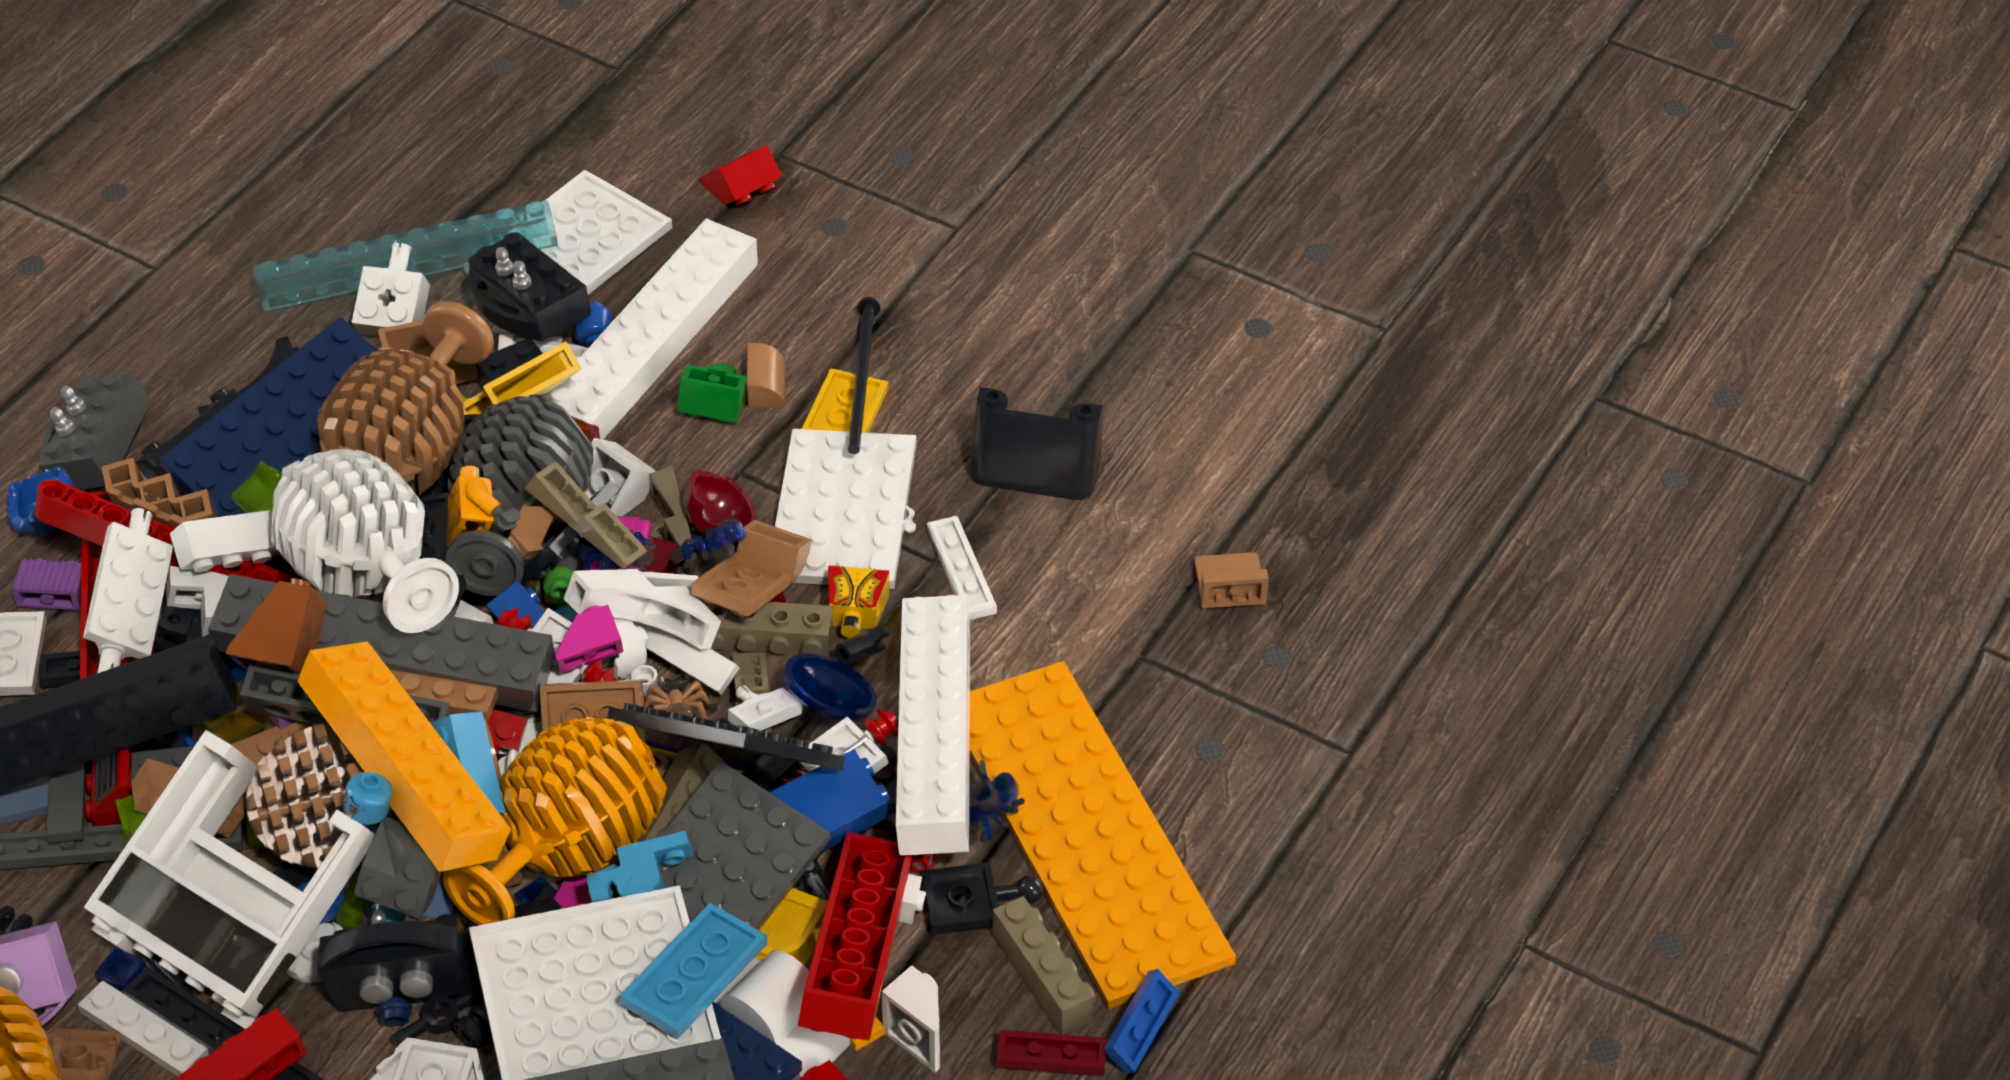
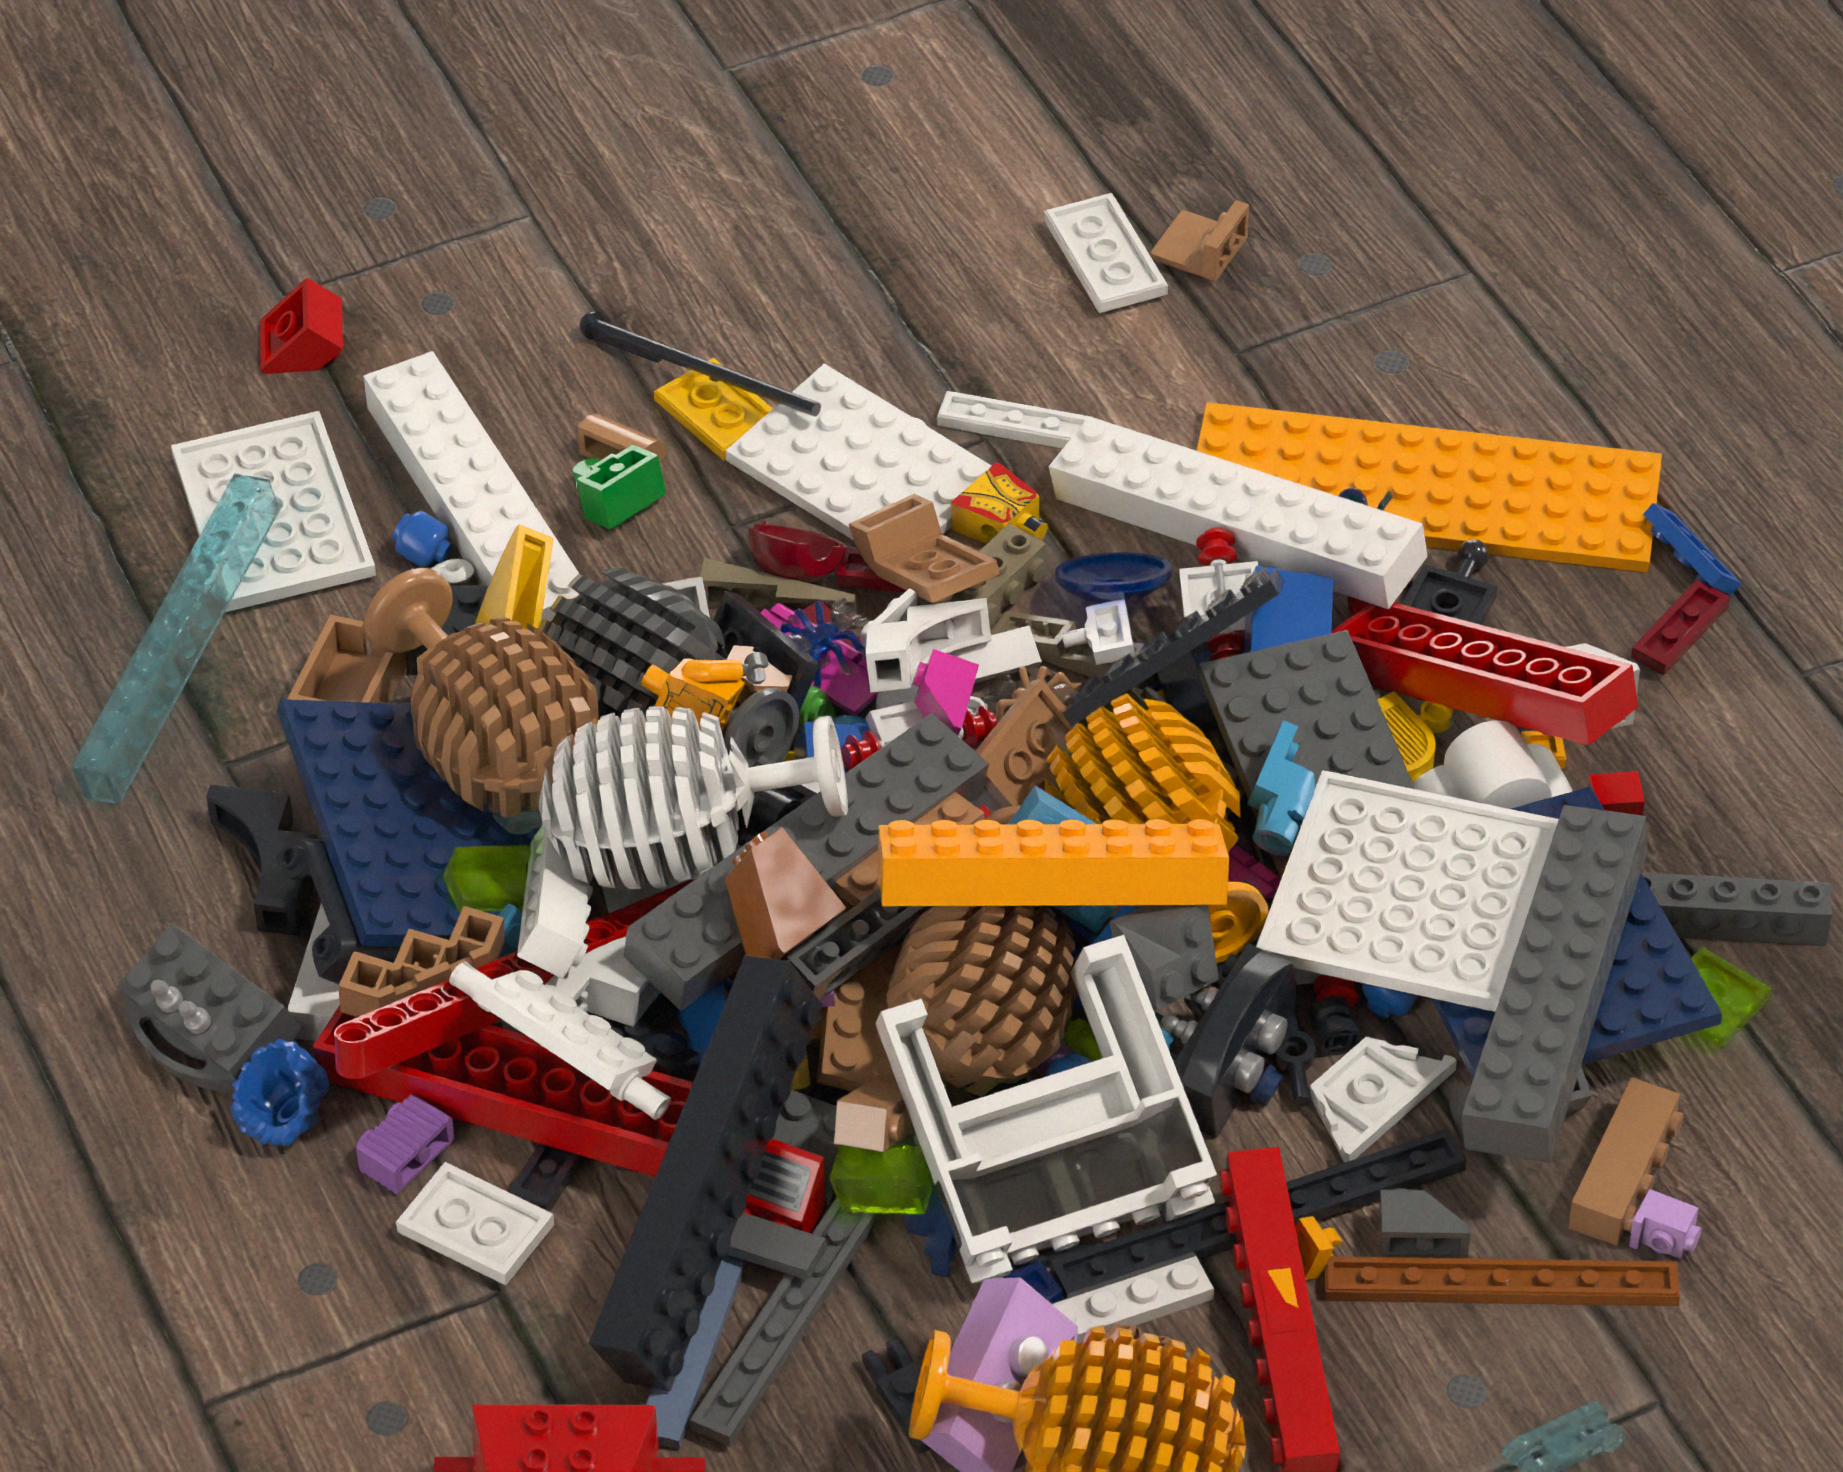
camera: 55 degrees left, 0 degrees up
(367, 798) = (1095, 912): dark azure head -> none
(382, 287) = (228, 658): white brick -> none
(529, 288) = (342, 551): black piece -> none
(596, 524) = (797, 616): dark tan slope -> none
(693, 970) = (1455, 795): dark azure plate -> none
(716, 545) = (866, 563): animal -> none
(861, 646) = (1070, 533): black bar -> none
(1036, 450) = (924, 294): black windscreen -> none
(1043, 965) = (1578, 583): dark tan brick -> none
(1173, 532) = (1105, 253): none -> white plate

